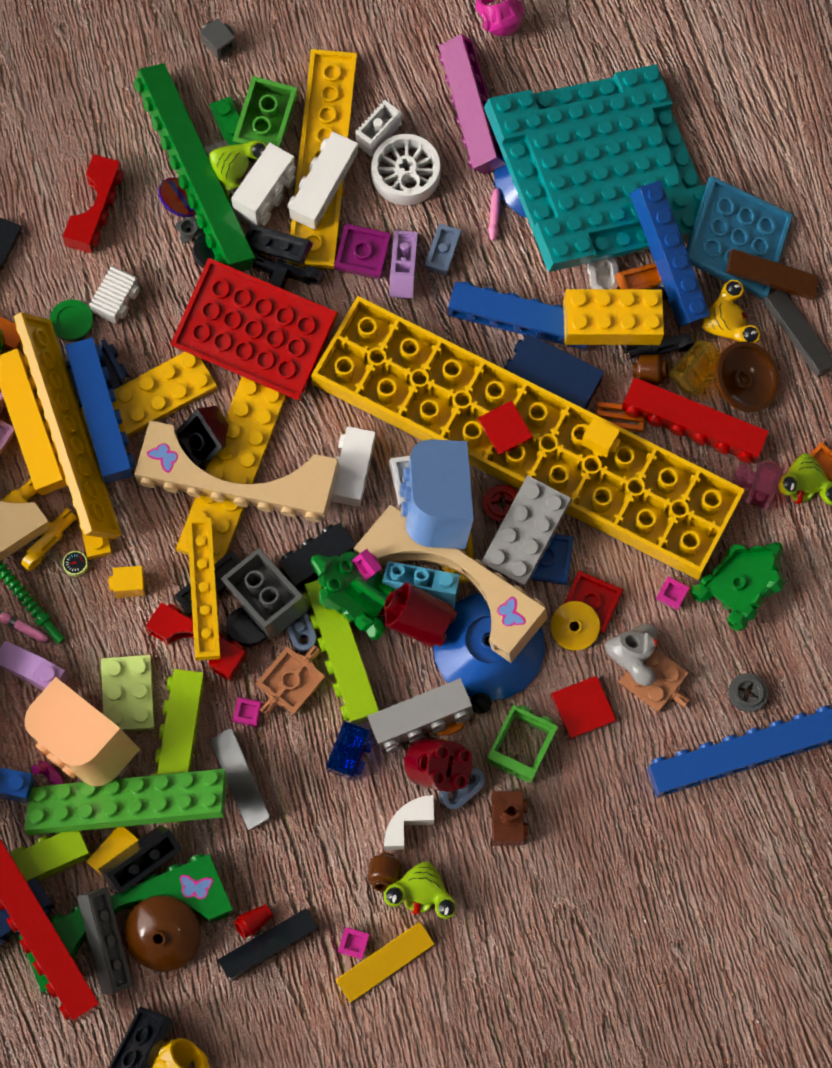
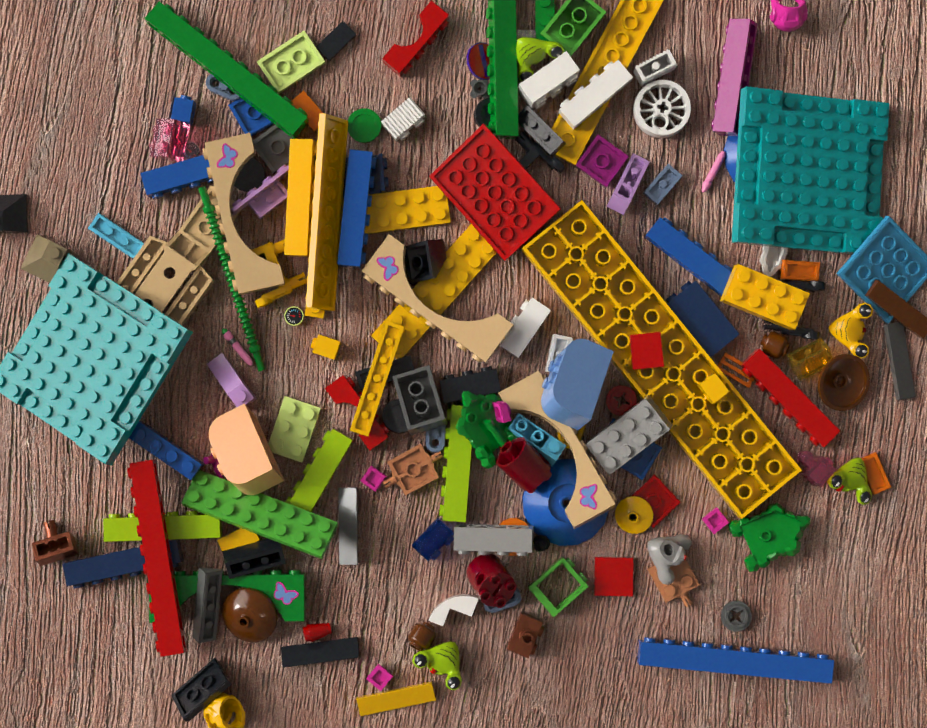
camera: 20 degrees right, 15 degrees up
(669, 253) = (829, 266): blue brick -> none

